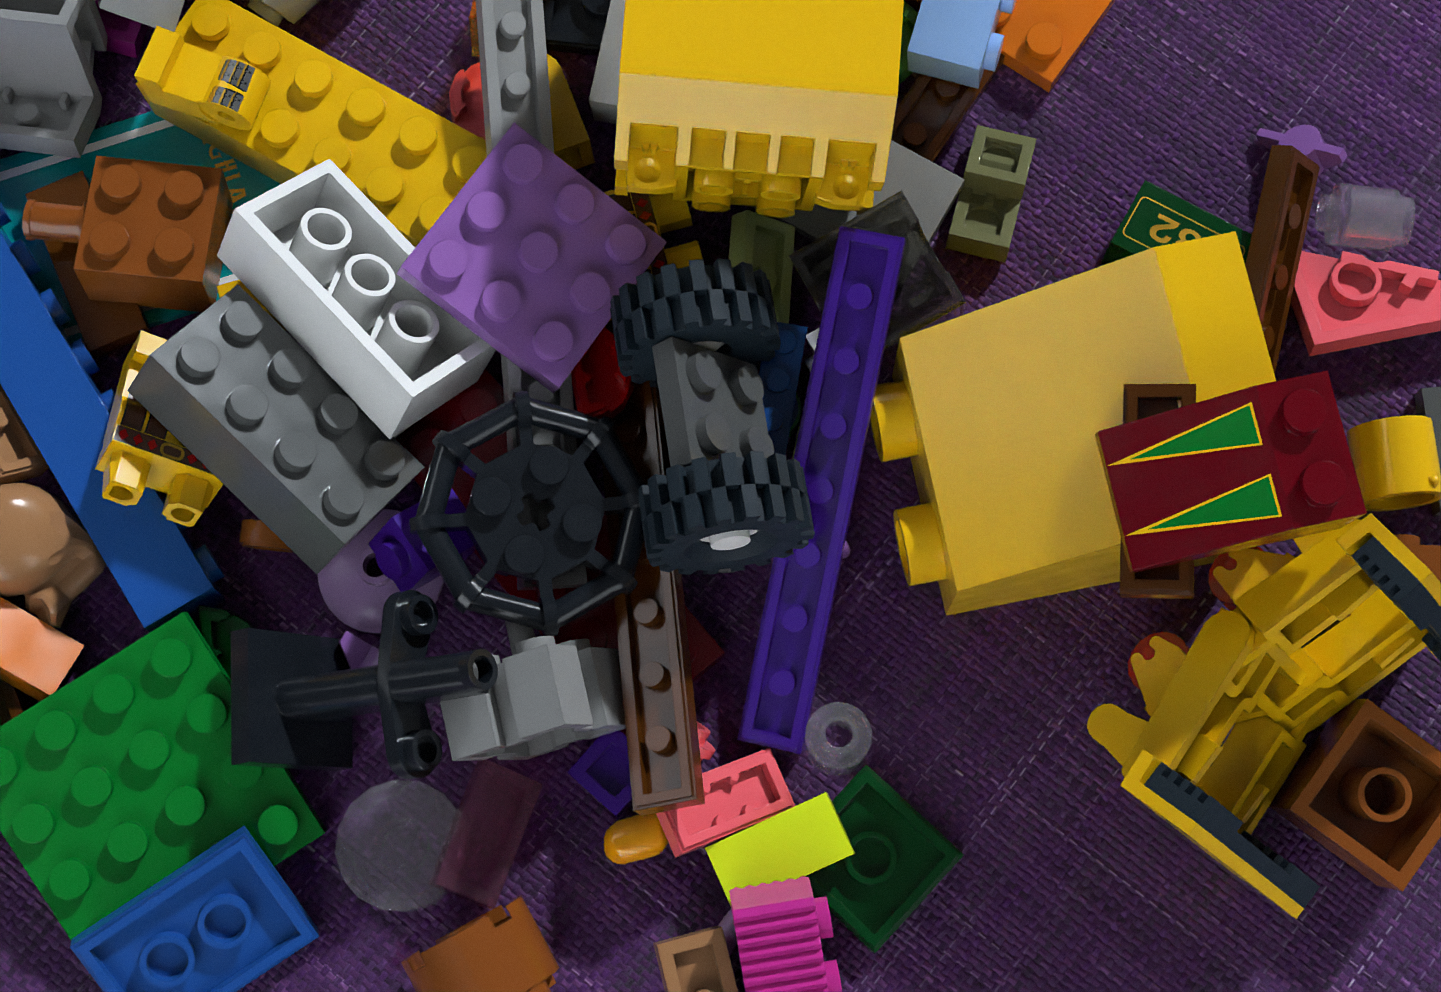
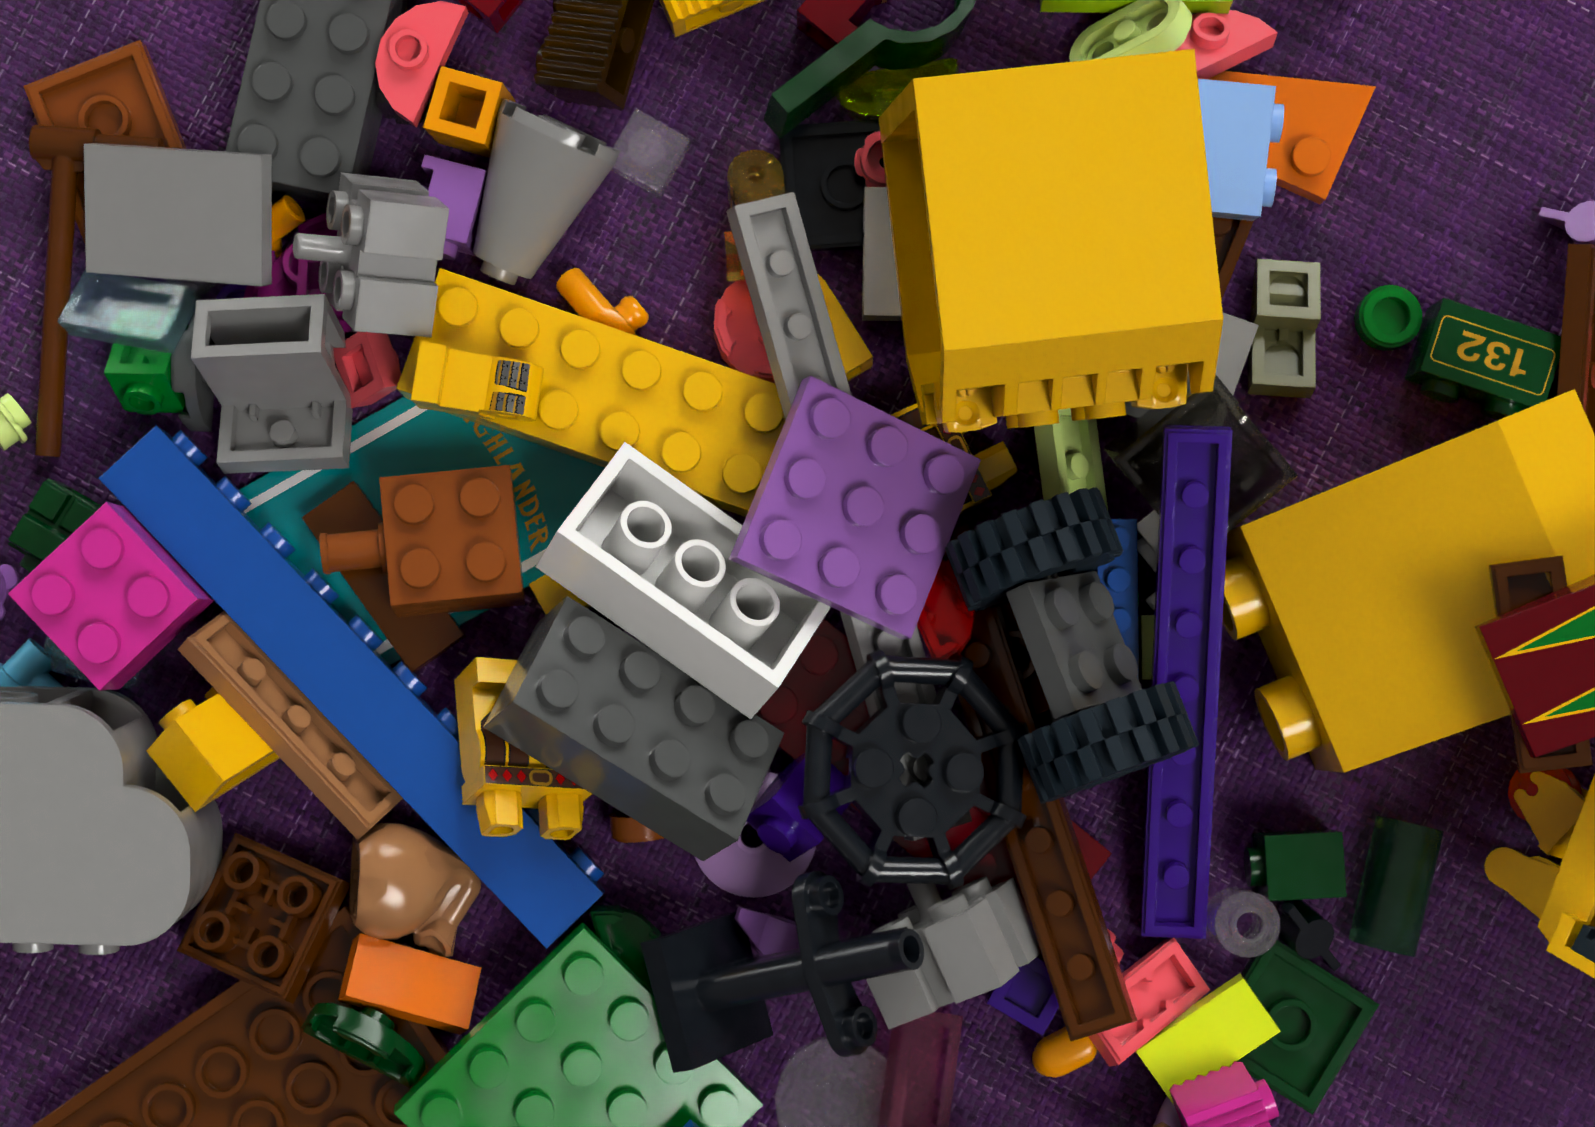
camera: 15 degrees left, 10 degrees up
(116, 71) = (368, 367): none -> coral plate
(335, 42) = (592, 304): none -> light orange arm
(902, 766) = (1307, 932): none -> black piece
(905, 695) = (1296, 864): none -> dark green brick
(1004, 739) = (1396, 886): none -> clear green brick
(1094, 202) = (1388, 317): none -> green tile

